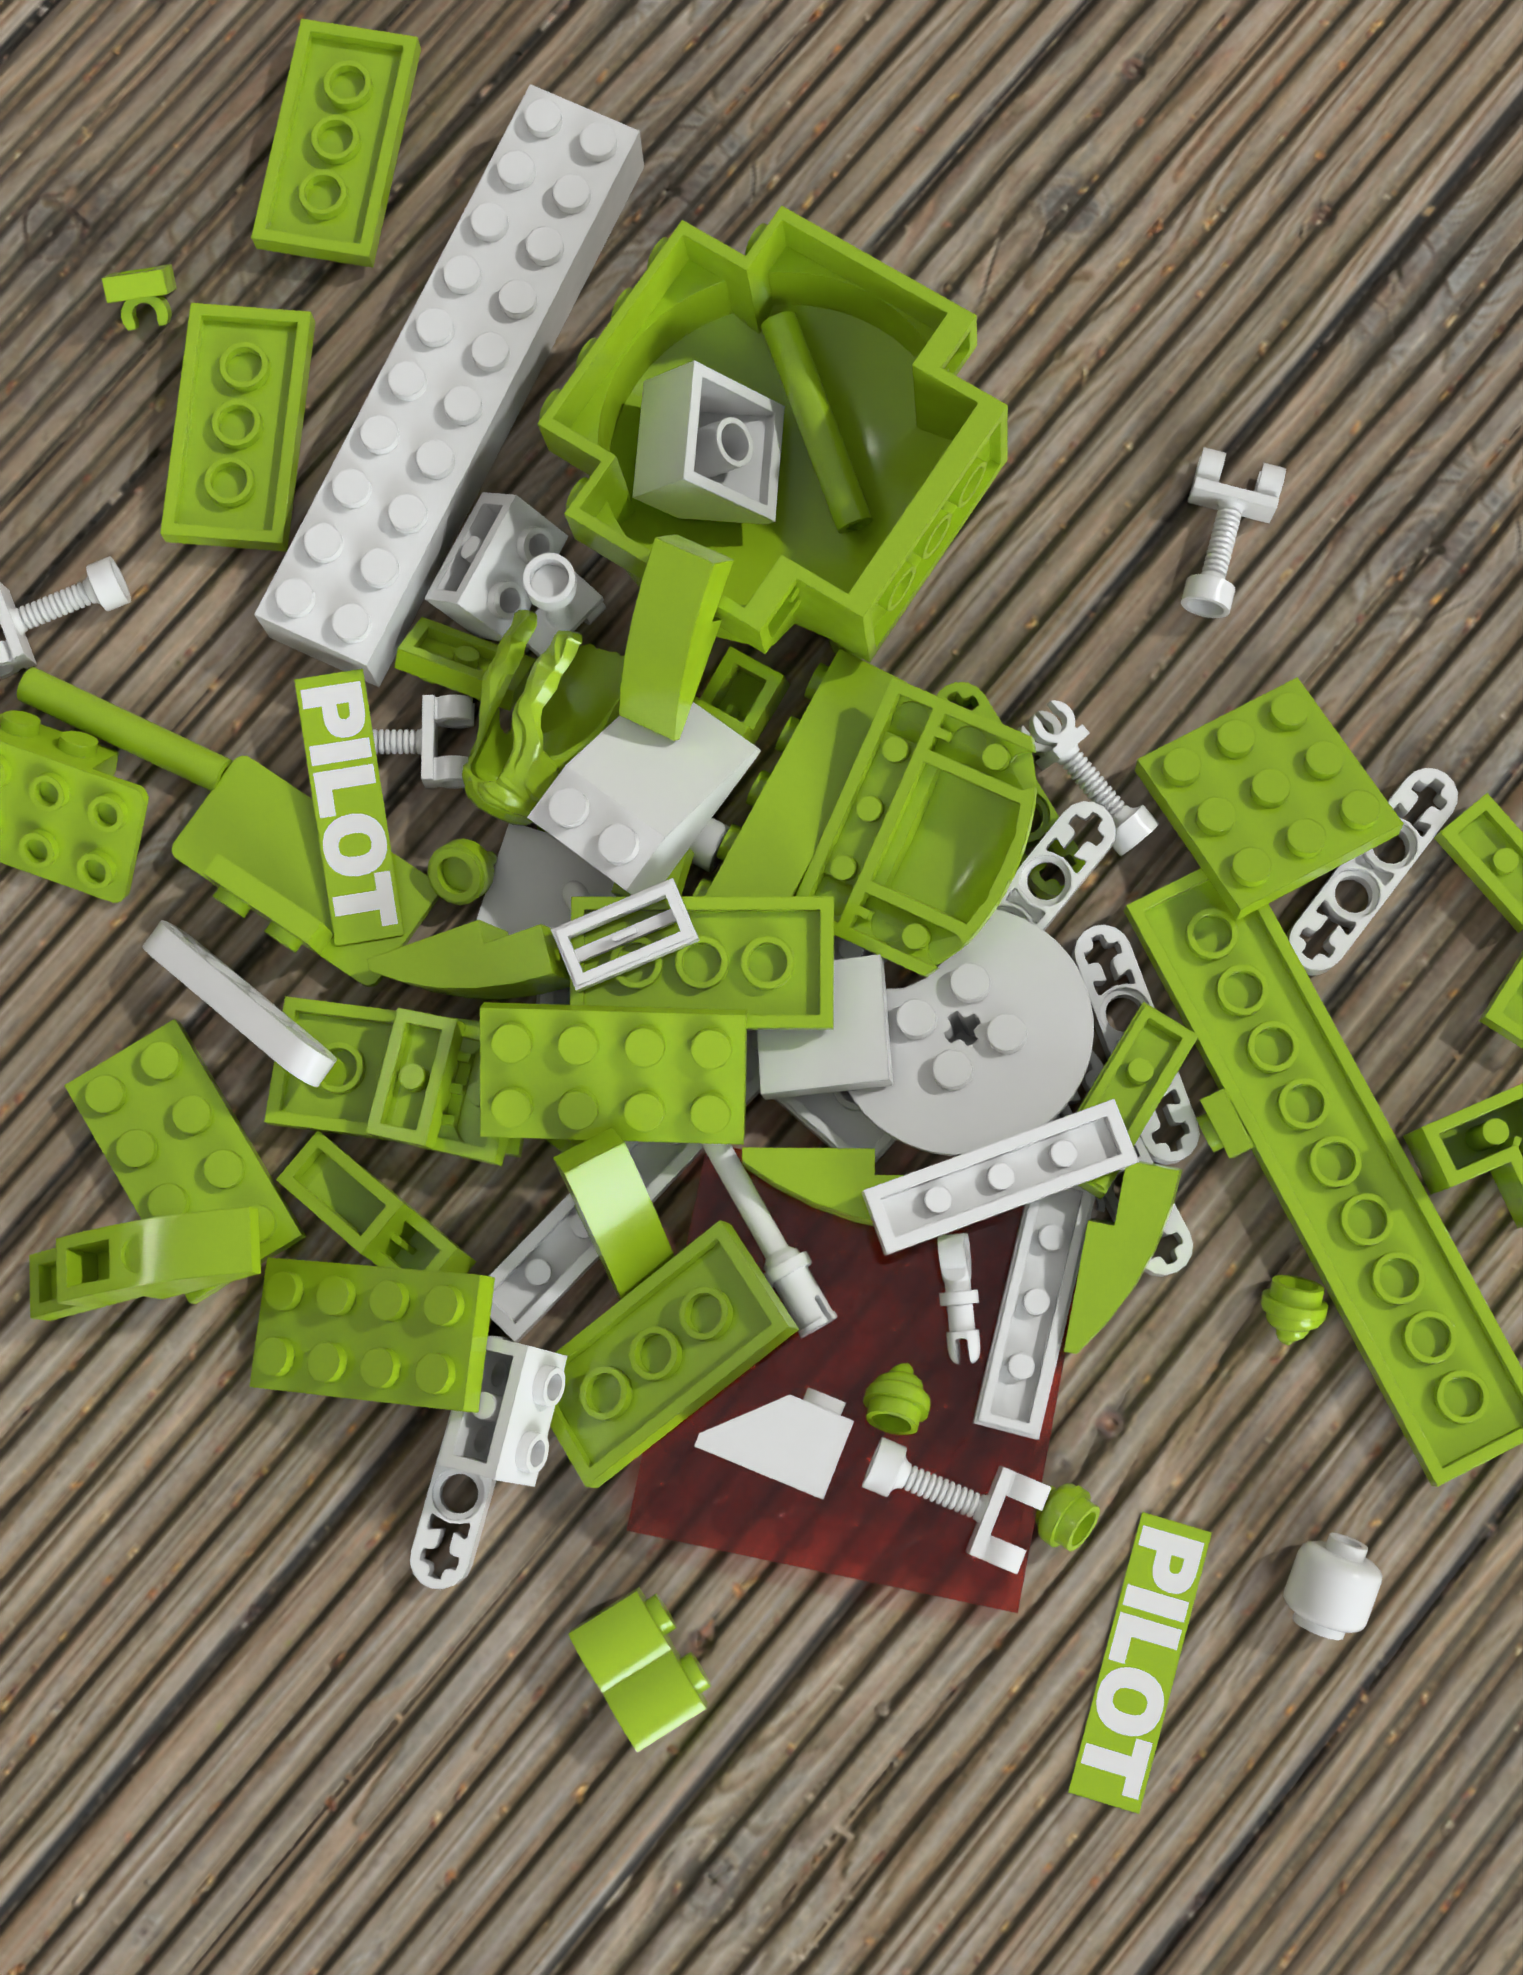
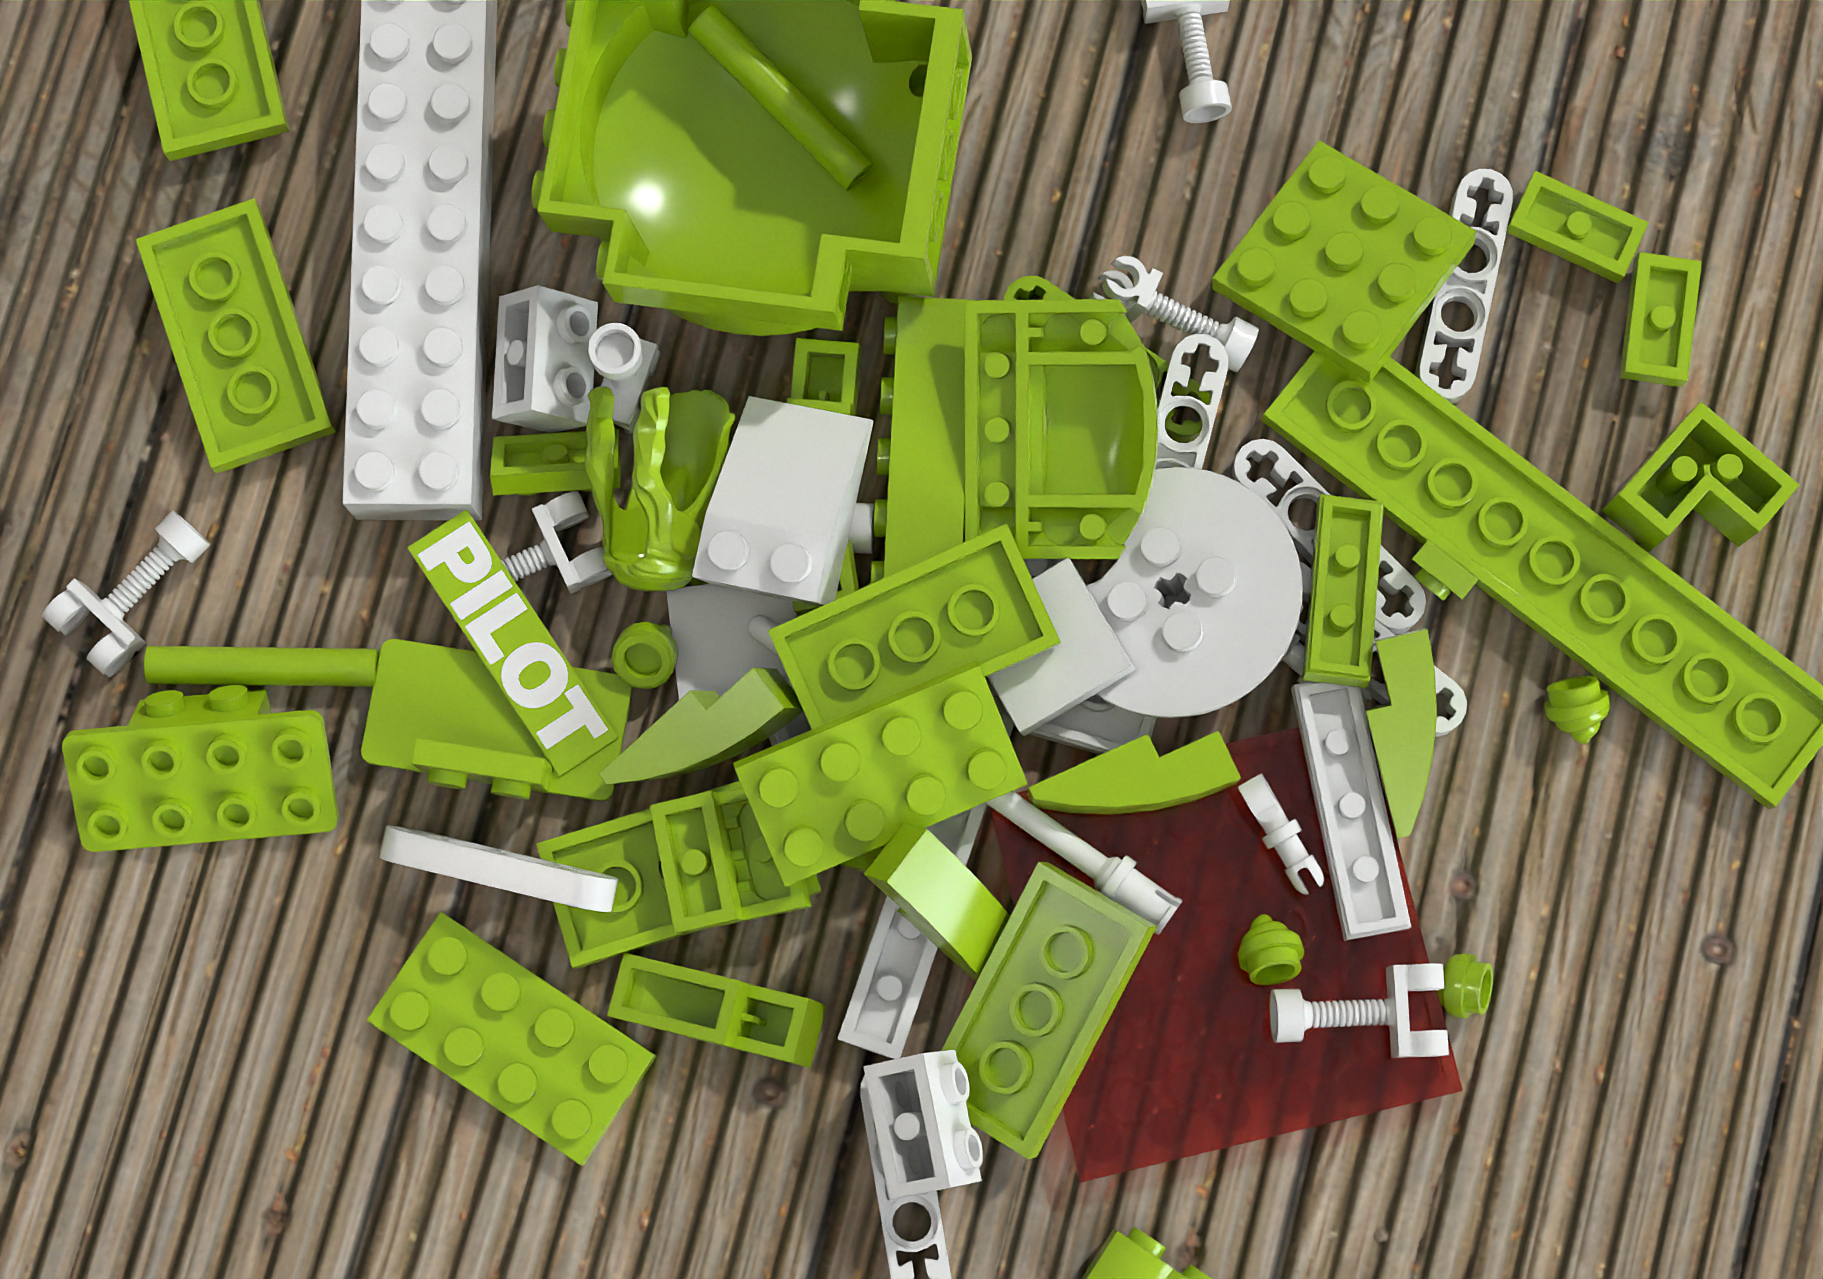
camera: 30 degrees left, 0 degrees up
(138, 287) = (78, 244): lime tile -> none
(145, 1259) = (524, 1143): lime slope -> none
(373, 1333) = (768, 1111): lime plate -> none
(614, 911) = (797, 684): white tile -> none
(671, 633) = (753, 350): lime slope -> none
(708, 447) = (692, 164): white slope -> none
(786, 1440) = (1194, 1029): white slope -> none
(999, 1177) = (1272, 708): white plate -> none
(1140, 1663) = (1588, 1085): sticker -> none
(1332, 1586) = (1725, 937): white head -> none

